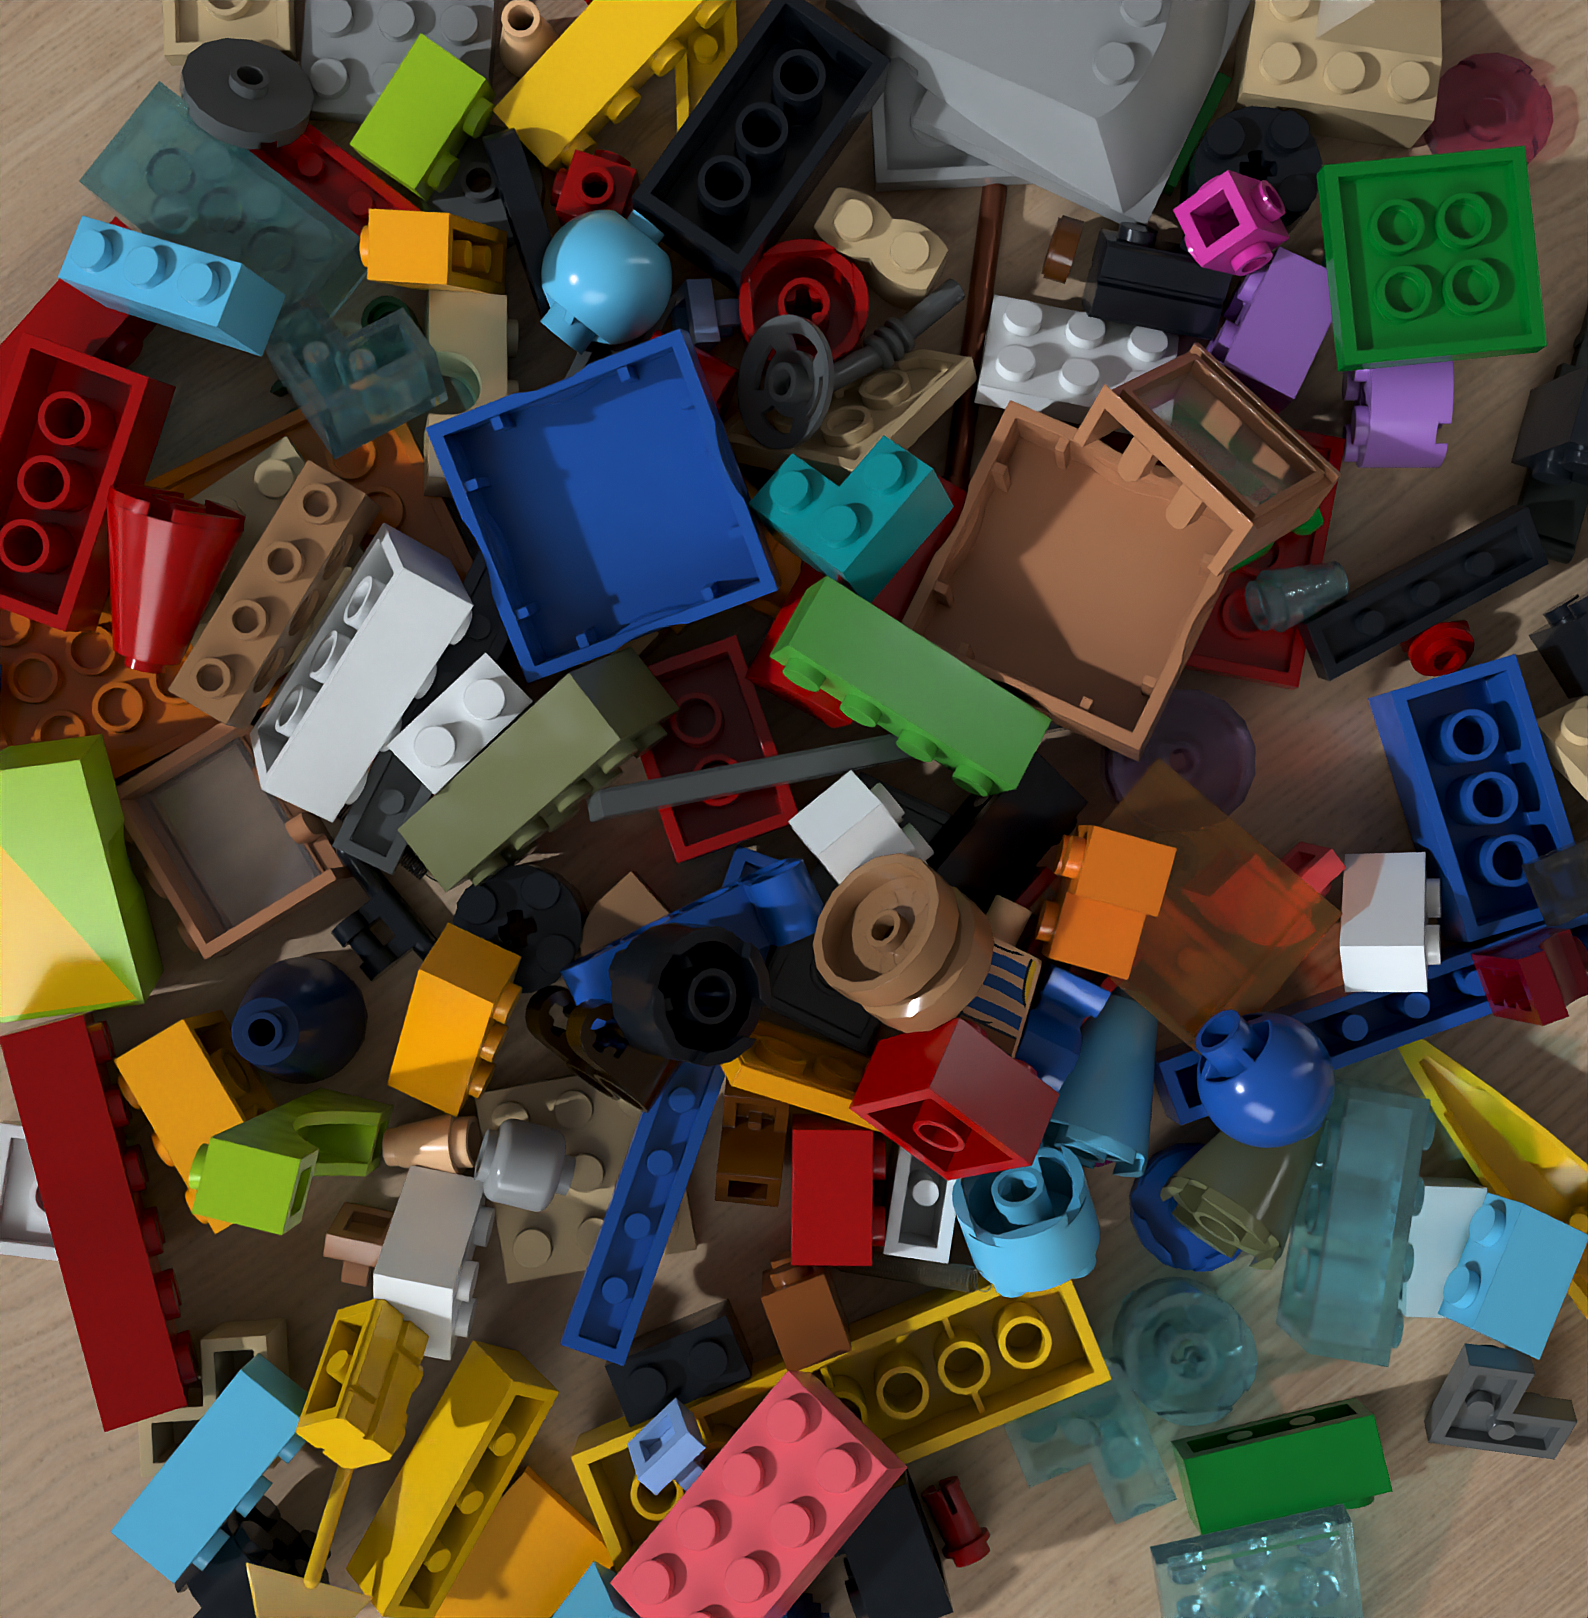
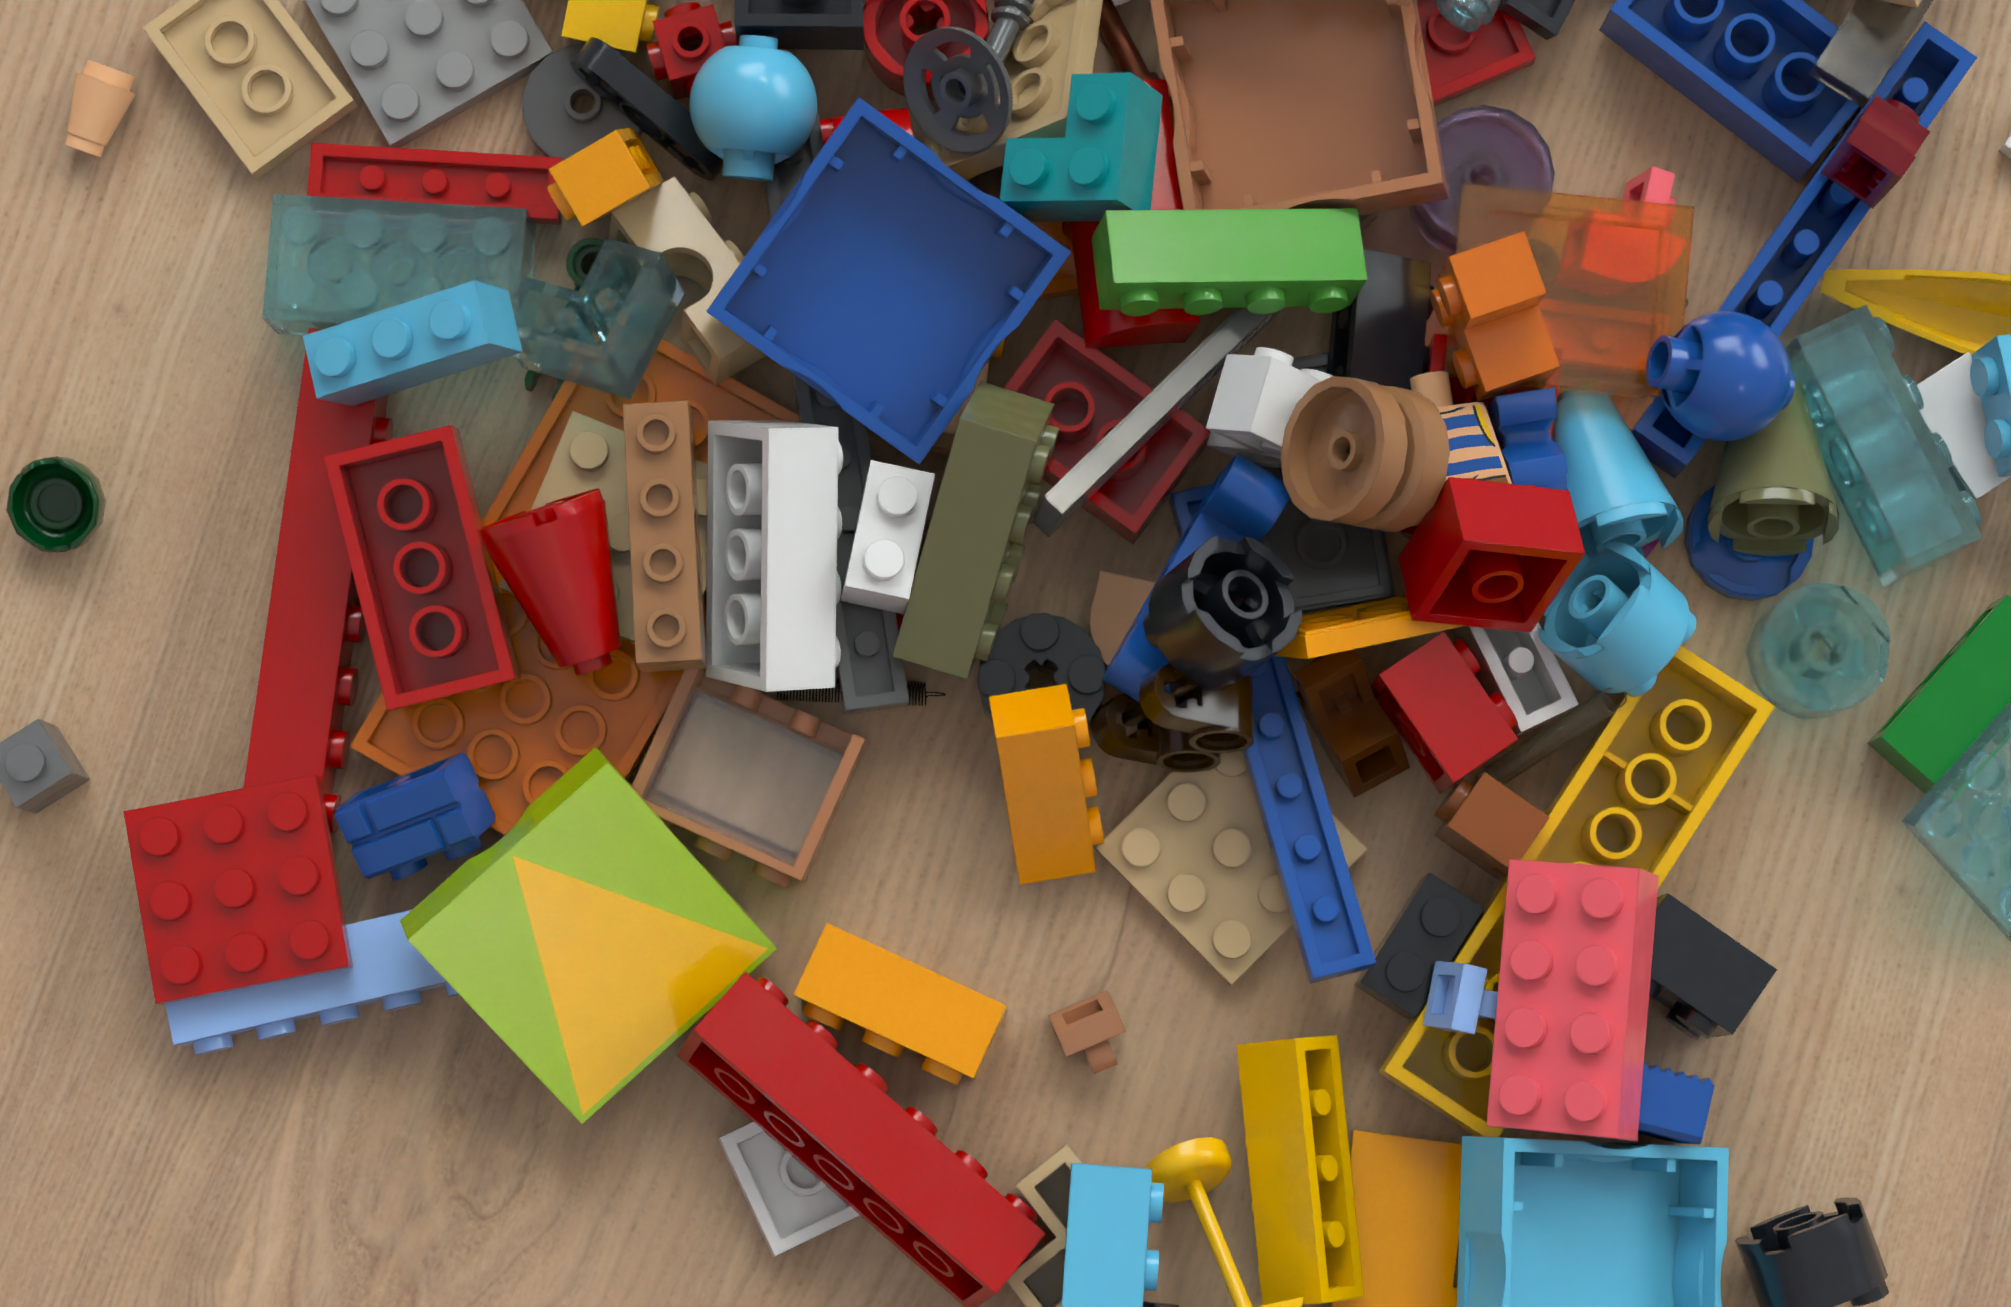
camera: 30 degrees left, 5 degrees down
(246, 93) = (350, 156): dark grey plate -> none
(265, 1165) = (1003, 942): lime arch -> none
(300, 1020) = (912, 918): dark blue cone -> none
(363, 1385) = (1176, 1118): yellow brick -> none
(389, 906) = (915, 742): black piece -> none
(425, 118) = (511, 79): lime brick -> none
(429, 1254) = (1161, 1004): white brick -> none
(434, 1143) = (1091, 910): light nougat cone -> none
(524, 1165) = (1180, 865): light grey head -> none
(702, 316) = (840, 85): light blue tile -> none
(957, 1524) = (1740, 923): red pin -> none
(1098, 1429) = (1804, 759): clear light blue brick -> none
(1386, 922) = (1737, 193): white brick -> none

